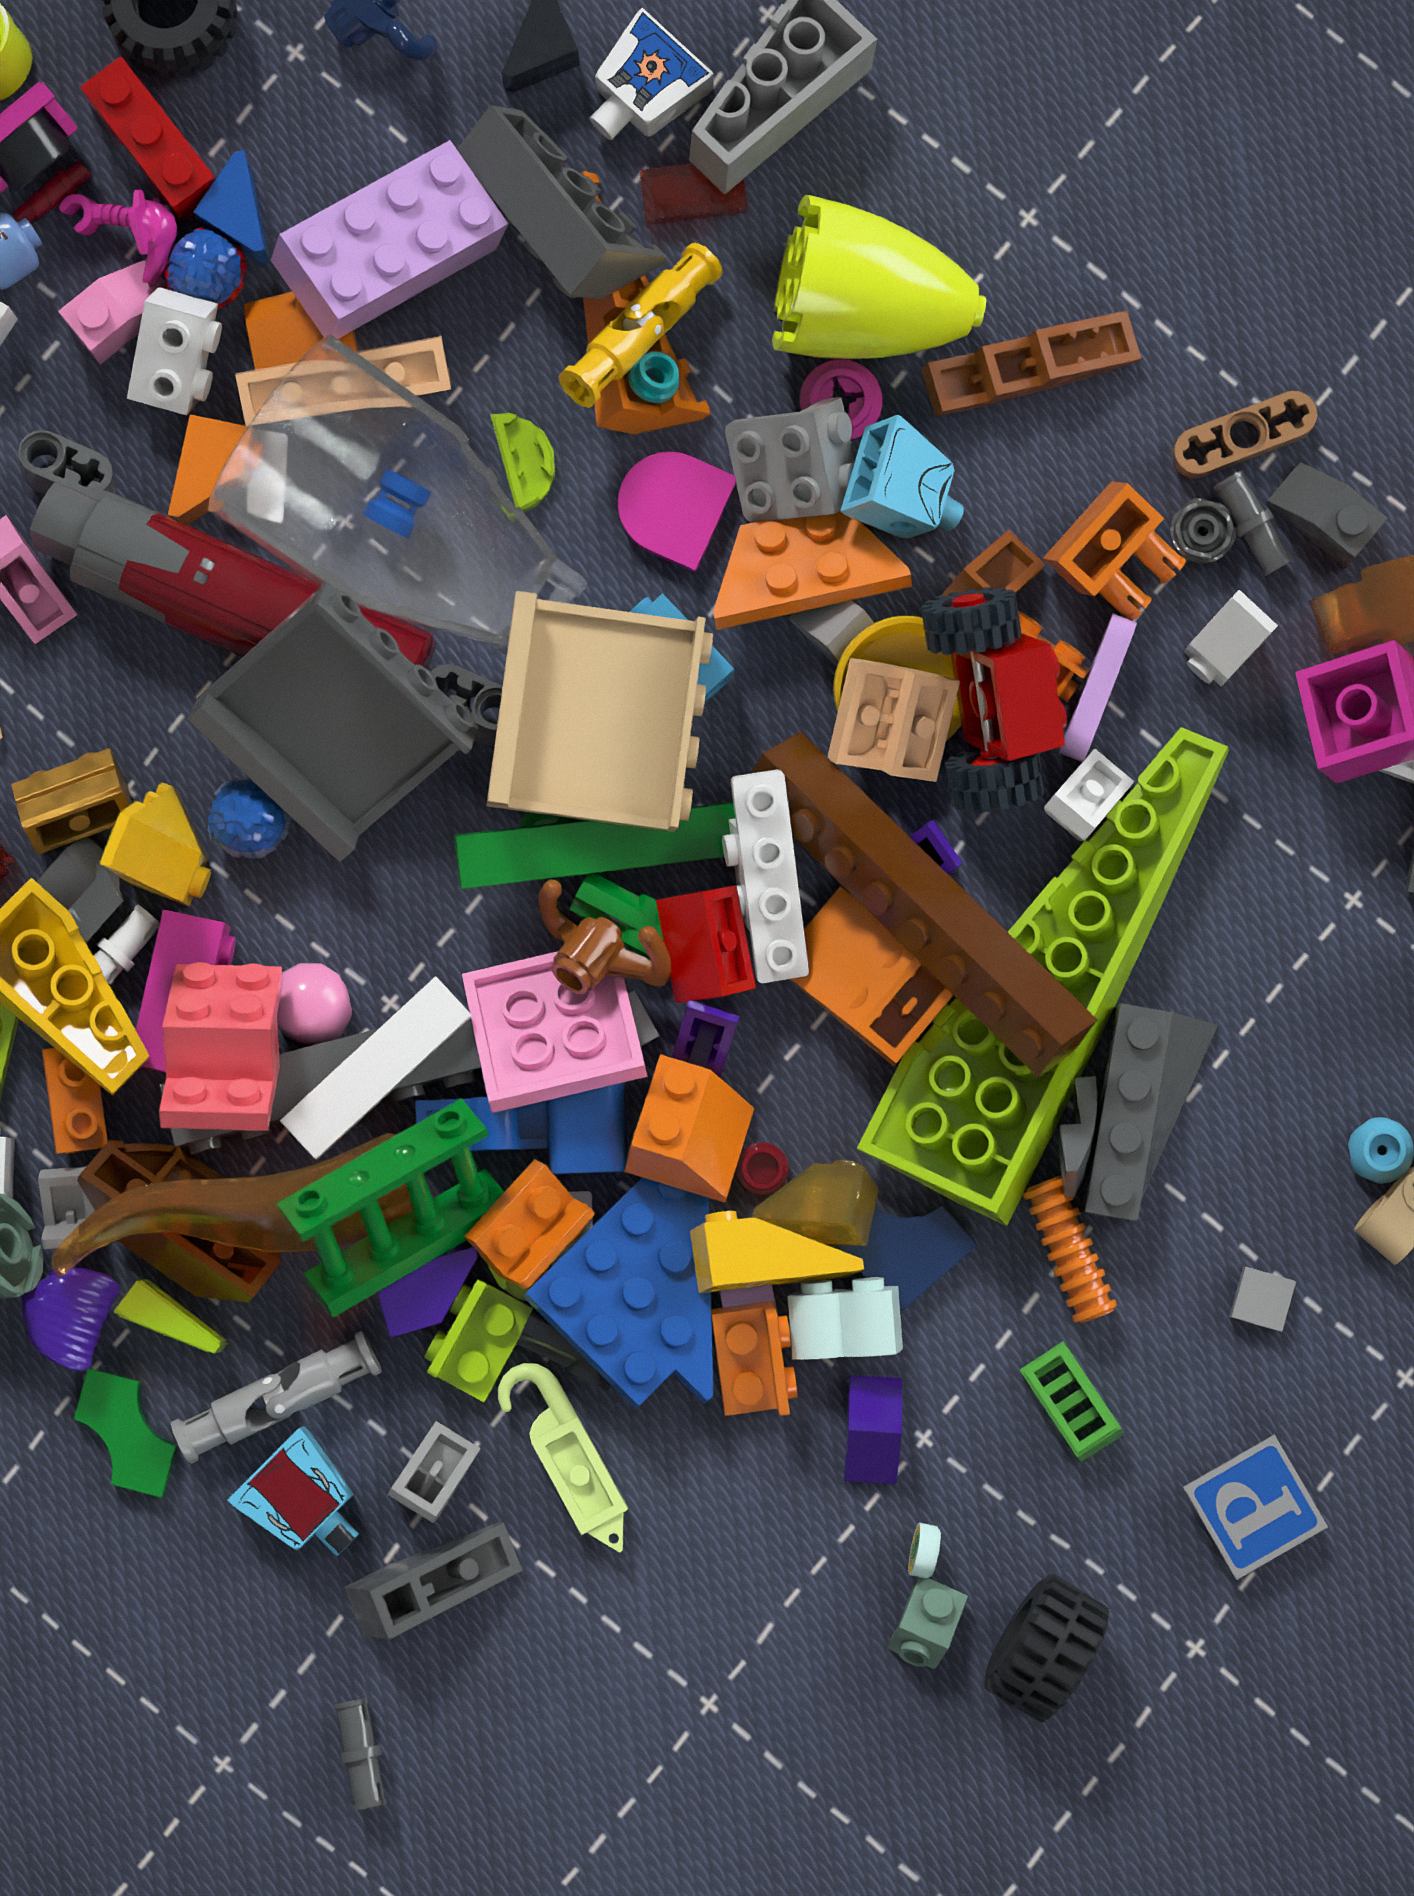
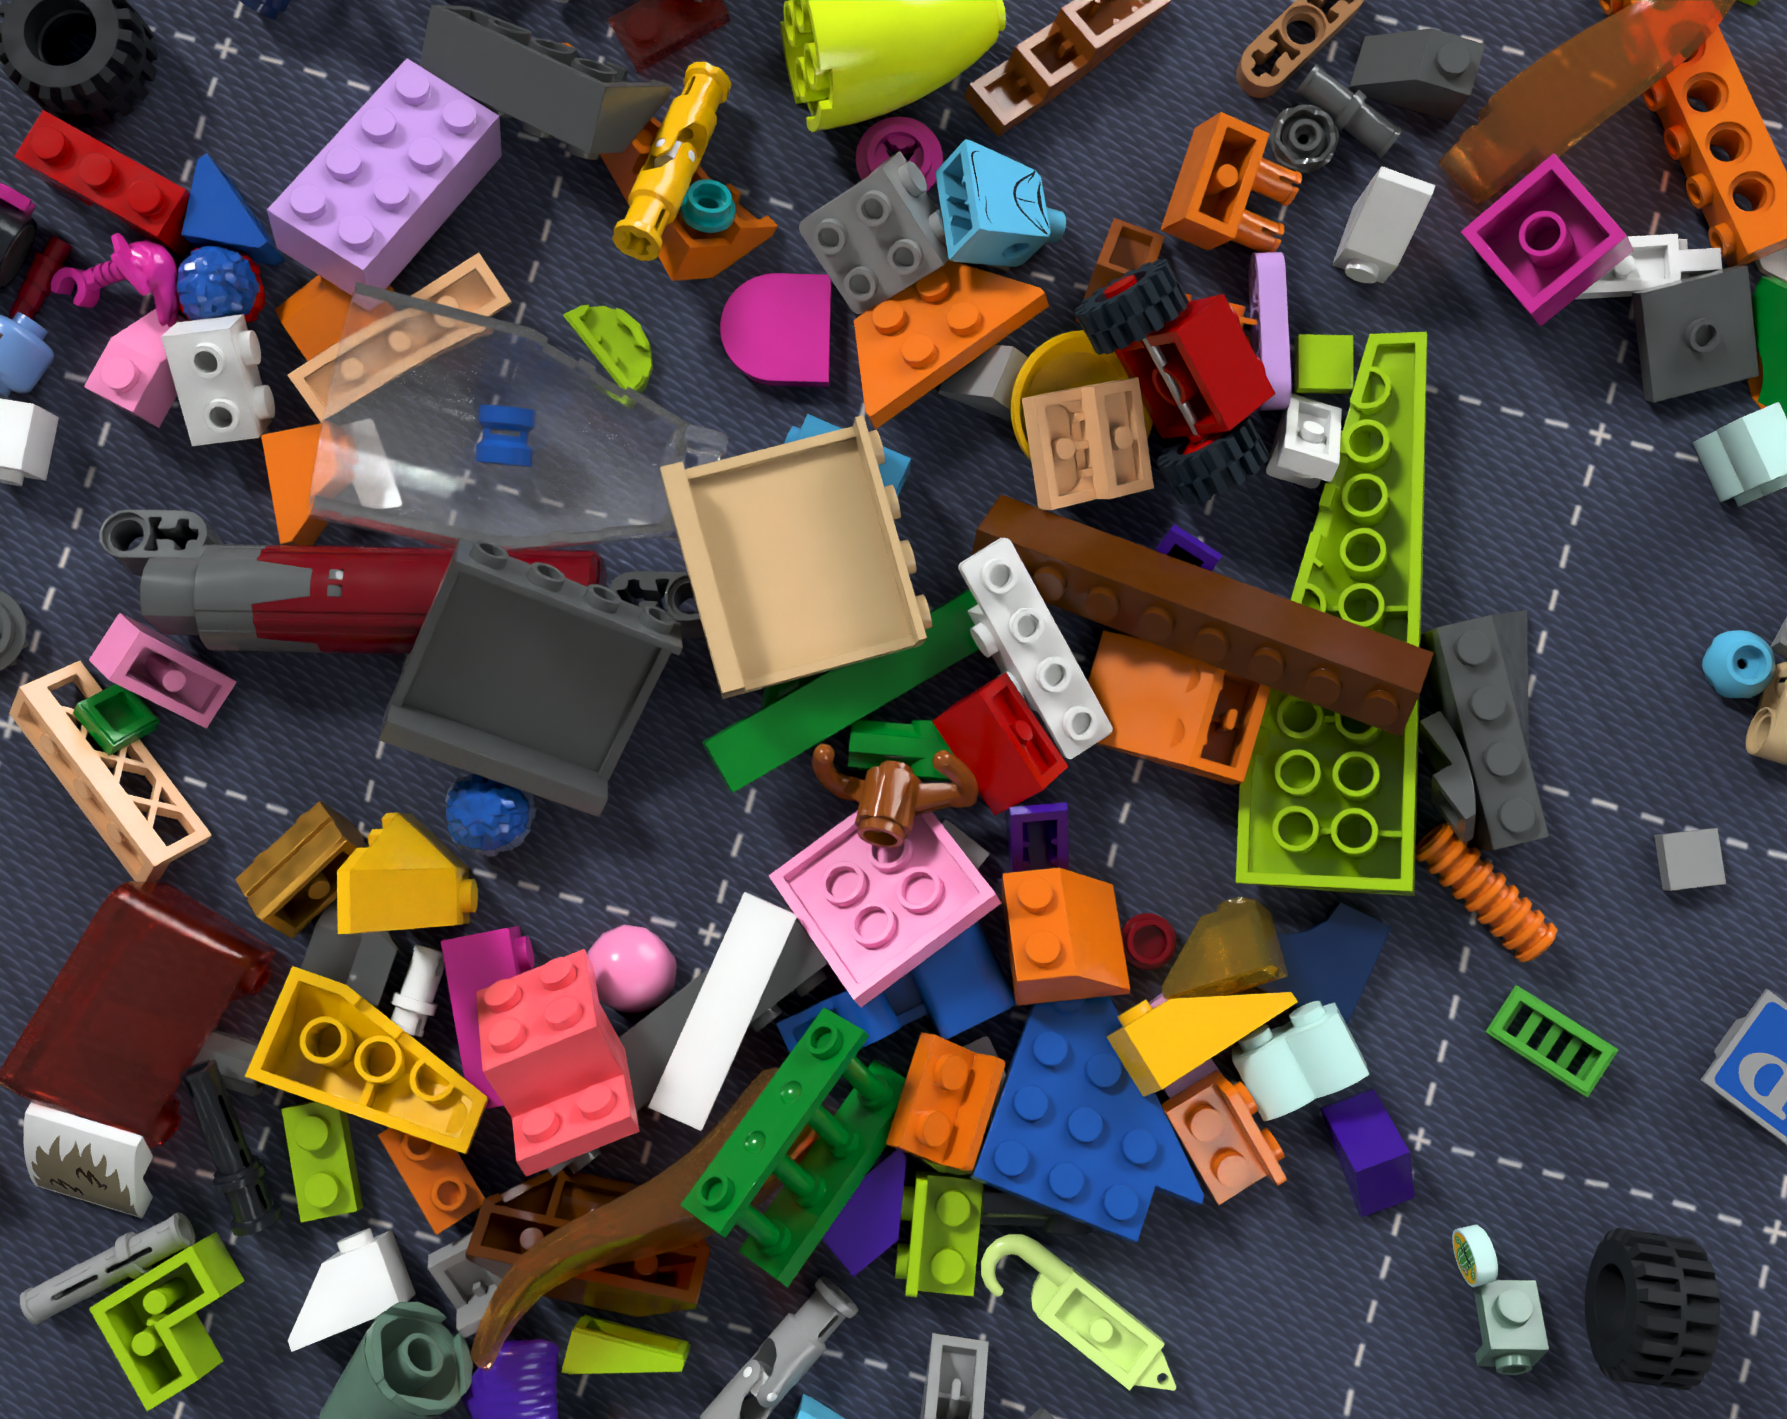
camera: 25 degrees left, 0 degrees up
(1134, 735) = (1323, 364): none -> lime tile

